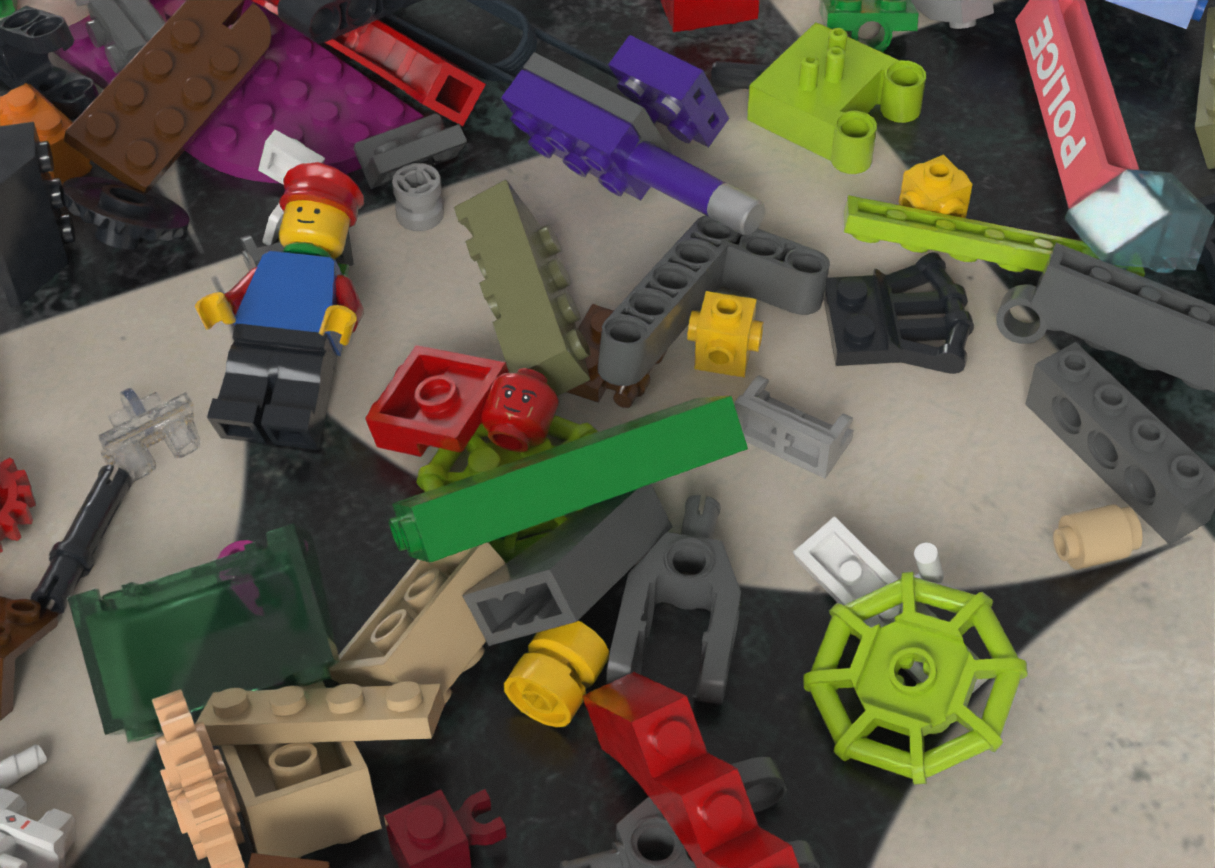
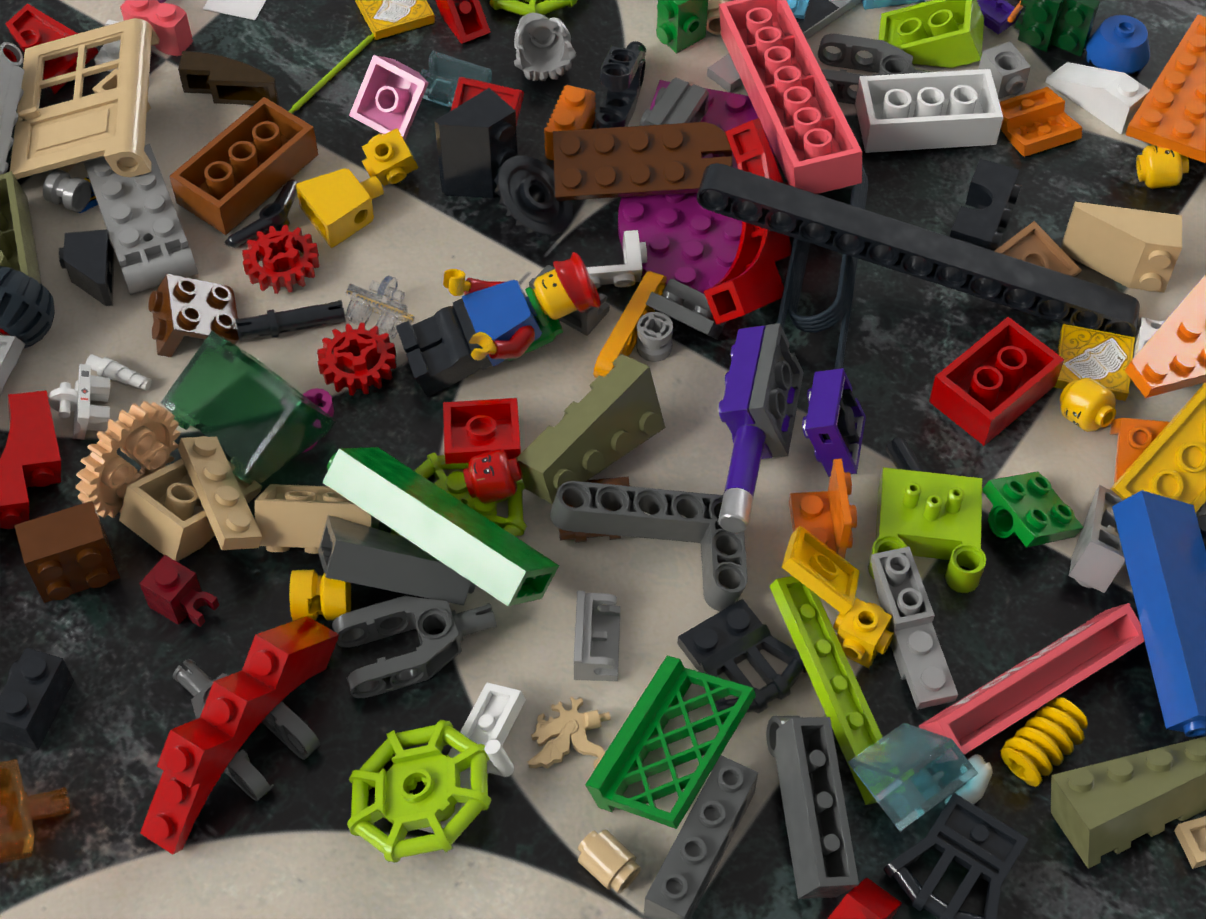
camera: 60 degrees right, 5 degrees up
(210, 488) = (357, 358): none -> red gear
(391, 216) = (624, 334): none -> light orange beam
(725, 333) = (645, 561): yellow brick -> none
(777, 154) = (827, 512): none -> orange bracket
(848, 184) = (821, 570): none -> yellow tile
(895, 503) = (567, 728): none -> tan piece
(916, 137) = (914, 637): none -> light grey slope
(961, 443) = (644, 733): none -> green fence
(1149, 124) = (1044, 740): none -> yellow piece

